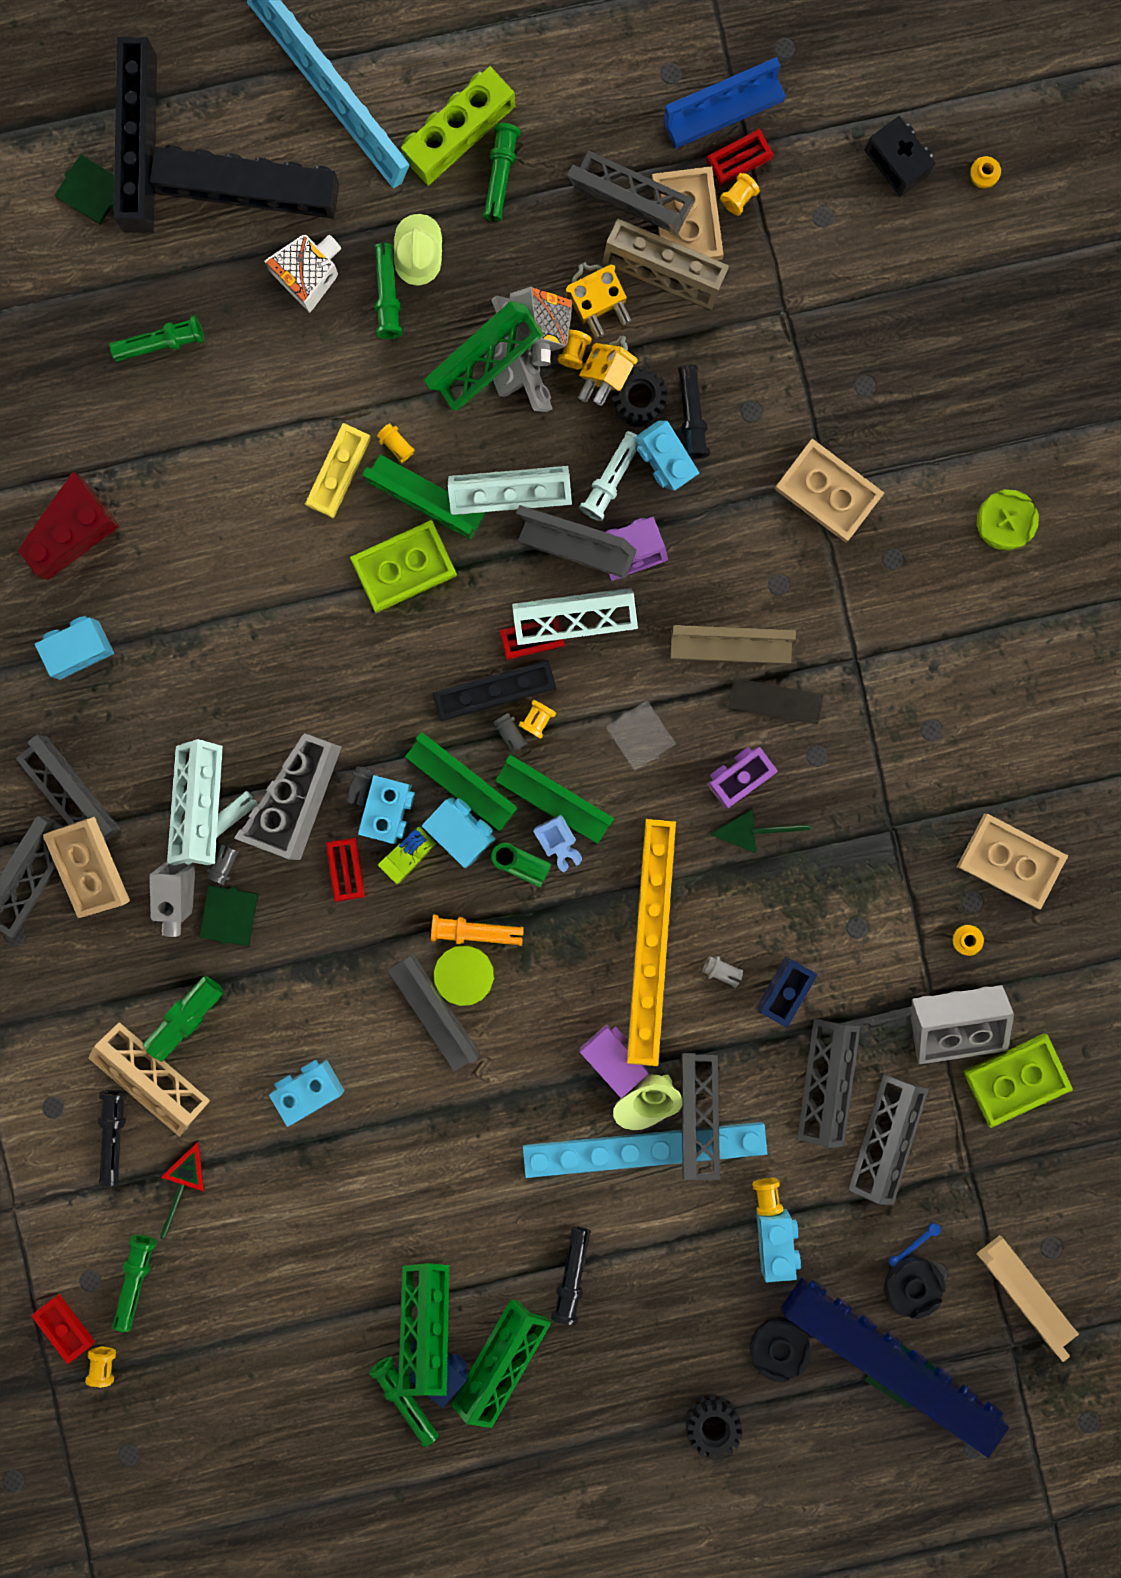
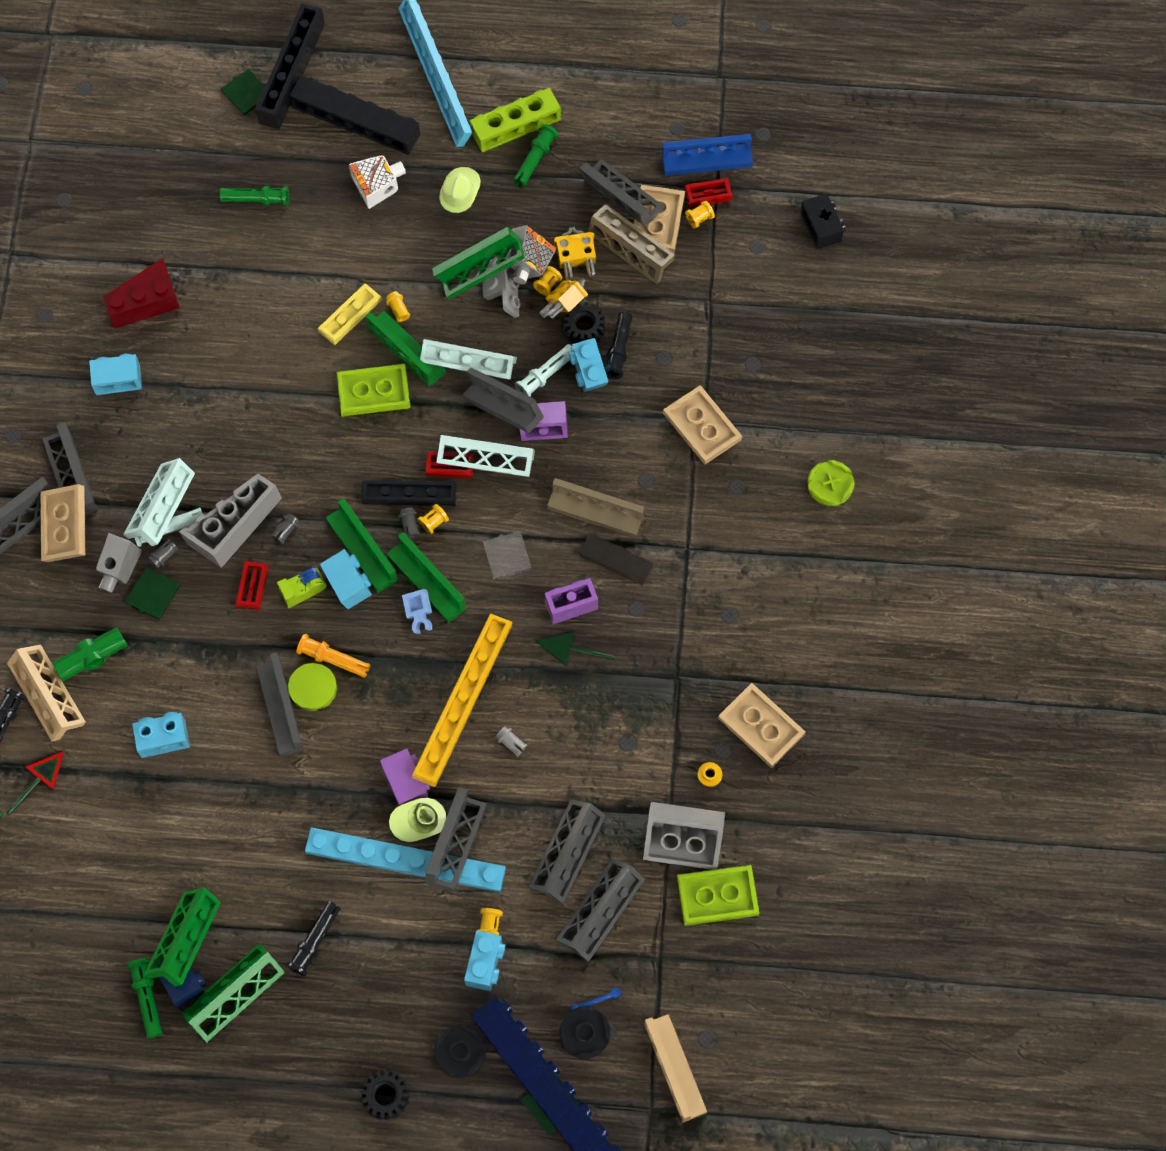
camera: 15 degrees right, 20 degrees down
(386, 810) = (298, 549): medium azure brick -> none
(387, 305) = (425, 217): green pin -> none
(523, 864) = (385, 617): green piece -> none
(786, 991) = (554, 766): dark blue brick -> none
(983, 180) = (879, 253): yellow plate -> none

